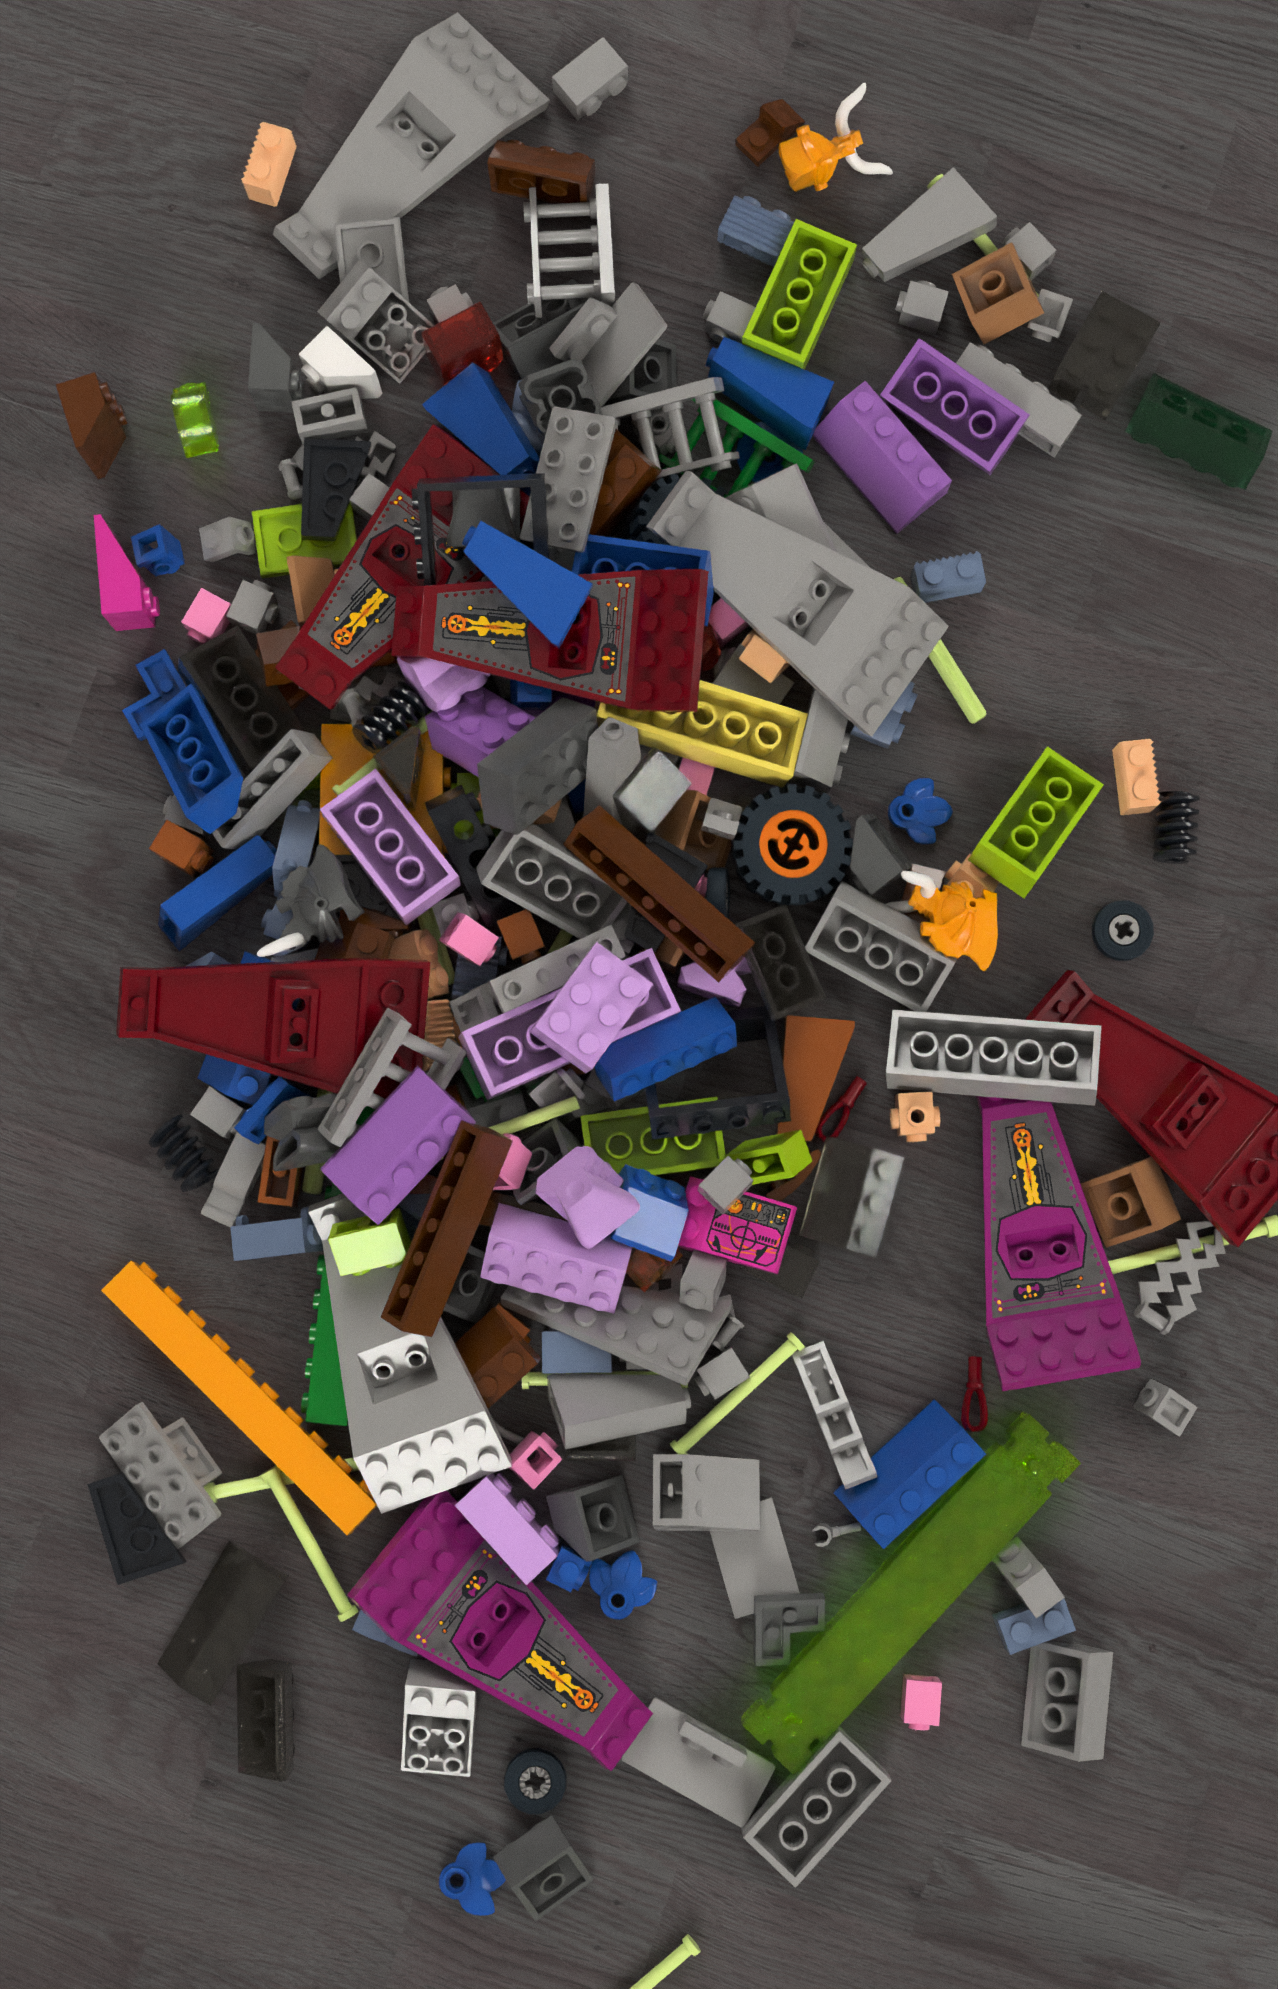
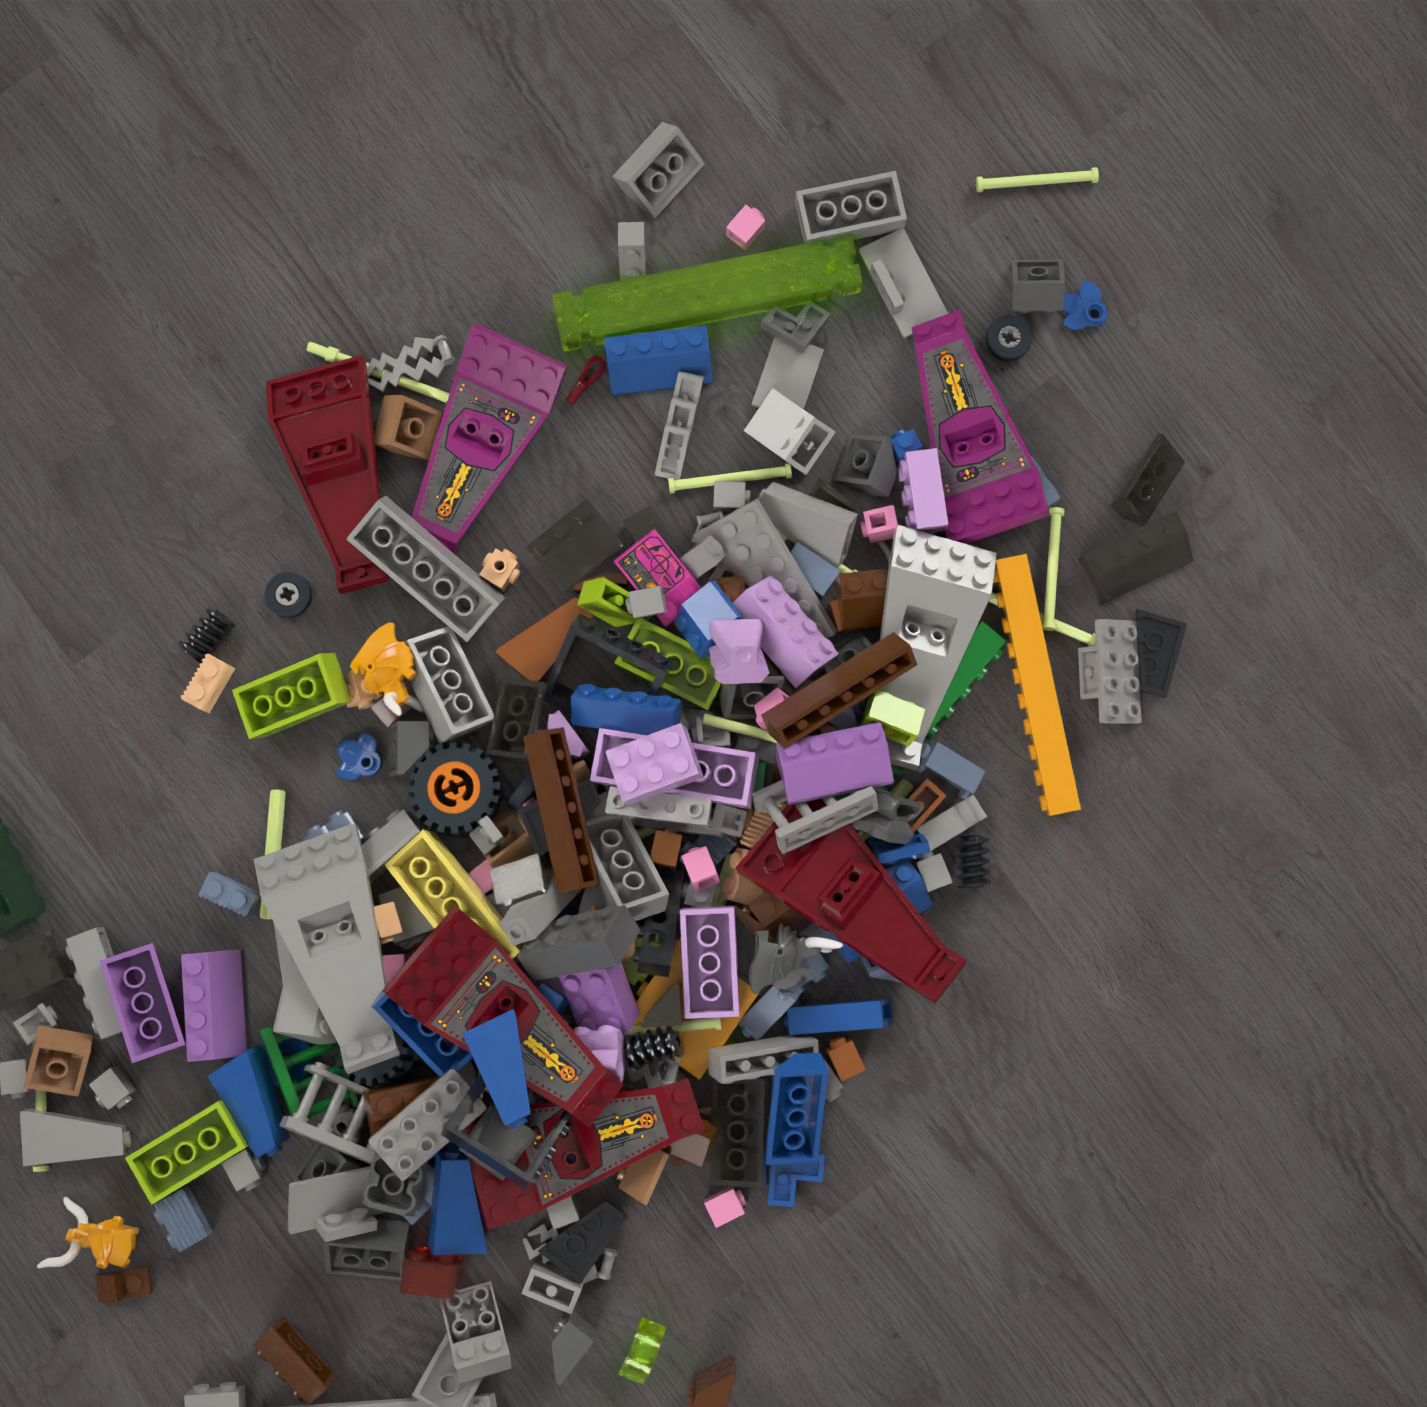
camera: 150 degrees left, 0 degrees up
(123, 592) = (767, 1262): dark pink slope -> none
(164, 558) = (730, 1269): blue brick -> none
(226, 539) = (677, 1252): light grey bracket -> none
(253, 607) = (690, 1191): light grey brick -> none
(279, 536) = (643, 1223): lime tile -> none
(336, 367) = (525, 1317): white slope -> none
(438, 1721) = (1044, 411): light grey slope -> none
(447, 302) = (421, 1310): light grey brick -> none
(598, 235) = (288, 1288): light grey fence -> none
(621, 1579) = (875, 417): blue plate -> none
(835, 1531) = (728, 359): light grey hand -> none
(847, 1102) = (536, 607): dark red piece -> none
(1022, 1630) = (657, 224): sand blue brick -> none
(1165, 1407) = (476, 294): light grey bracket -> none

